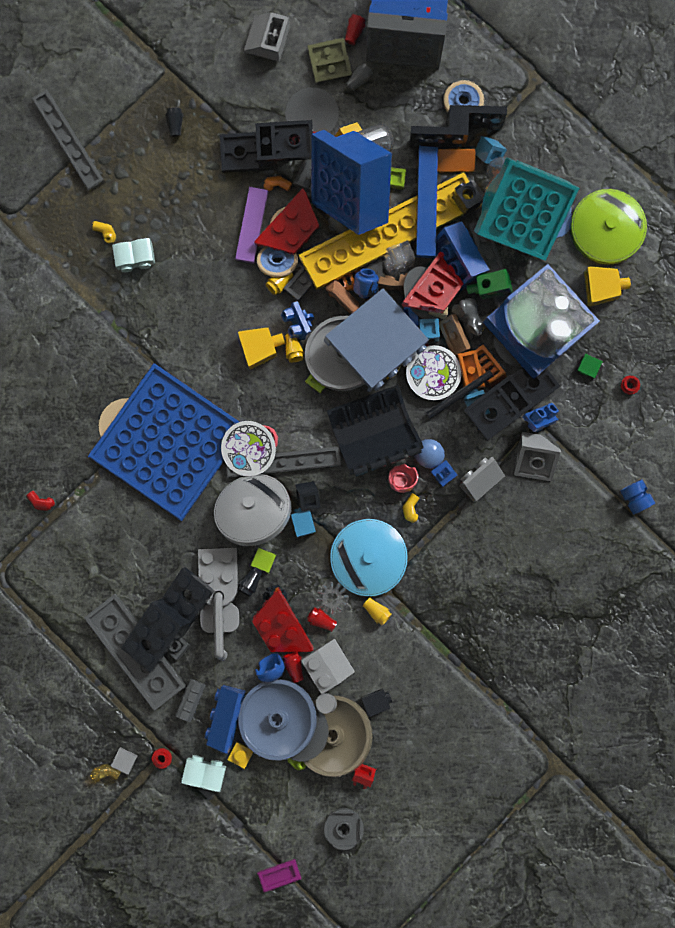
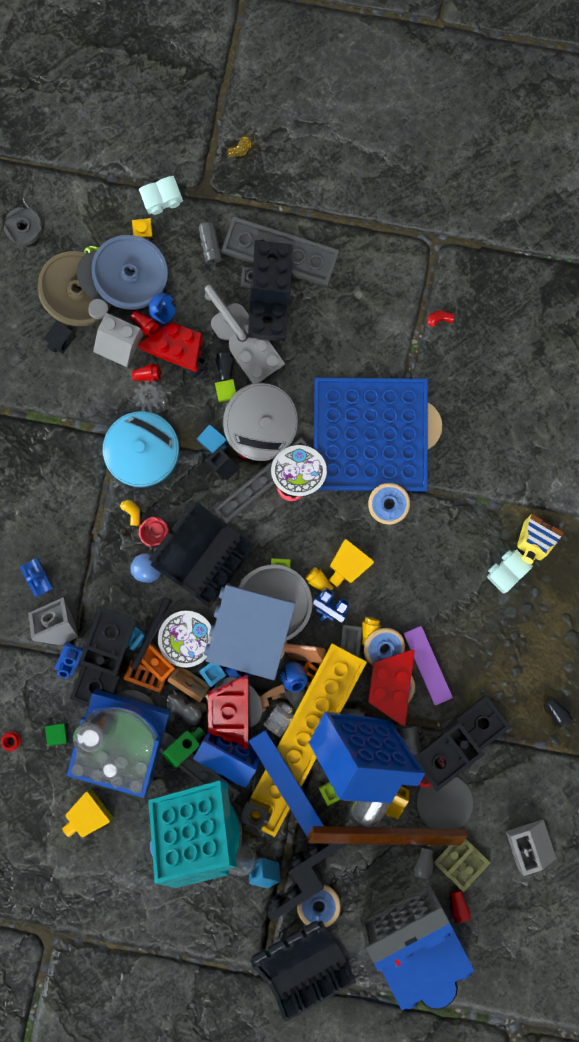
camera: 145 degrees right, 0 degrees up
(93, 264) = (537, 539): none -> torso
(107, 231) = (546, 577): yellow arm -> none
(124, 761) = (231, 165): light grey tile -> none
(168, 758) = (203, 191): red plate -> none
(189, 384) = (384, 492): none -> medium blue wheel
(224, 718) = (172, 246): blue slope -> none
(279, 181) = (433, 718): orange arm -> none
(279, 875) = (52, 161): magenta tile -> none
(364, 775) = (31, 275): red tile -> none
(374, 112) = (385, 835): none -> reddish brown tile
(377, 611) = (105, 410): yellow cone -> none
(444, 473) = (123, 559): blue tile -> none
(456, 160) = (288, 844): orange slope -> none
(482, 480) = (87, 574): light grey slope -> none
(505, 59) = (304, 969): none -> black hinge
(526, 504) = (36, 577): none -> blue hips
(608, 226) = (116, 873): lime dish -> none

